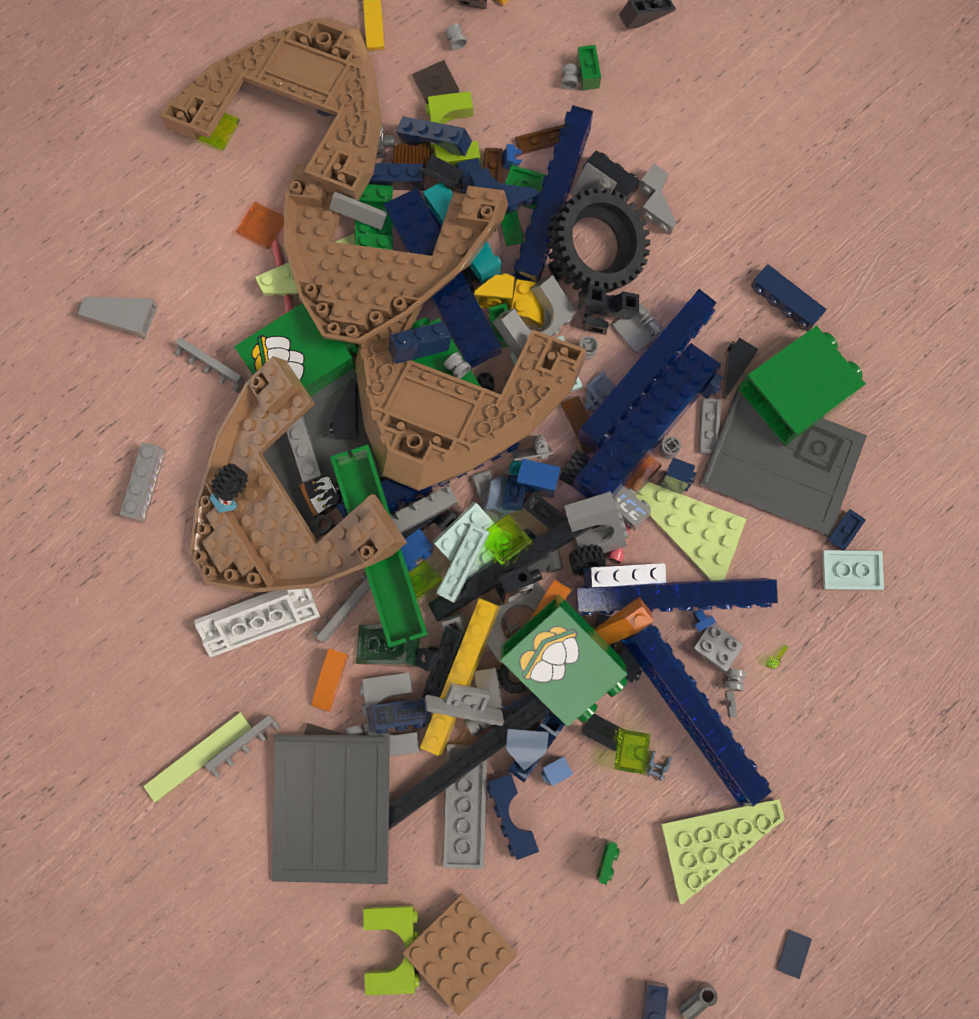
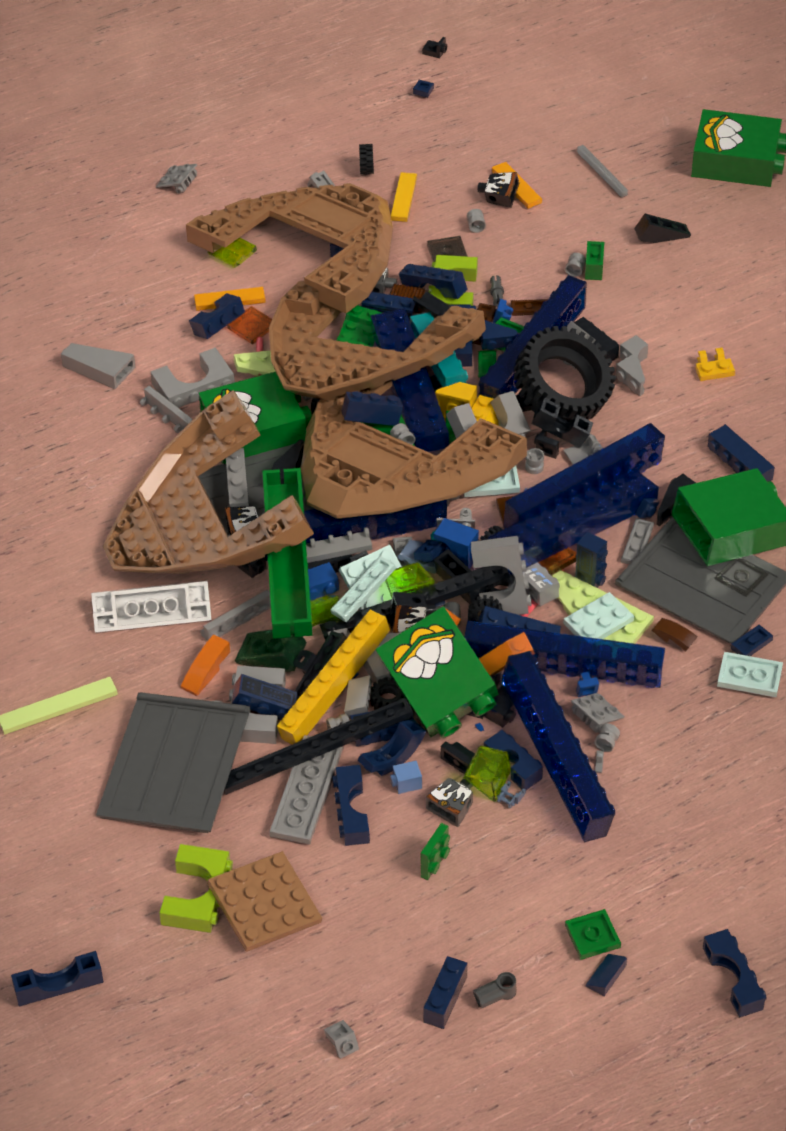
camera: 10 degrees right, 30 degrees down
(133, 39) = (179, 177): none -> light grey hinge
(142, 482) = (77, 487): light grey brick -> none
(213, 336) = (183, 393): none -> light grey arch
(218, 238) = (207, 324): none -> dark blue arch
(221, 505) = (150, 503): medium azure tile -> none
(229, 194) = (248, 296): none -> light orange tile
(229, 482) = (155, 478): black tyre -> none
(240, 744) = (102, 700): light grey hinge -> none
(283, 16) = (319, 179): none -> light grey bracket
(358, 210) = (345, 318): light grey tile -> none
(465, 703) = (333, 685): light grey bracket -> none
(498, 127) = (496, 289): none -> dark grey pin
(526, 745) = (381, 735): sand blue slope -> none
(606, 789) = (451, 800): none -> torso
(668, 736) = (526, 769): none -> dark blue arch
(697, 540) = (599, 618): none -> light aqua plate
(711, 842) = (545, 864): yellowish green wing -> none
(737, 186) = (714, 369): none -> yellow plate
(771, 536) = (677, 633): none -> reddish brown slope
(772, 914) = (593, 934): none -> green plate
(775, 662) = (651, 733): clear neon green hand -> none
(926, 950) = (723, 951): none -> dark blue arch

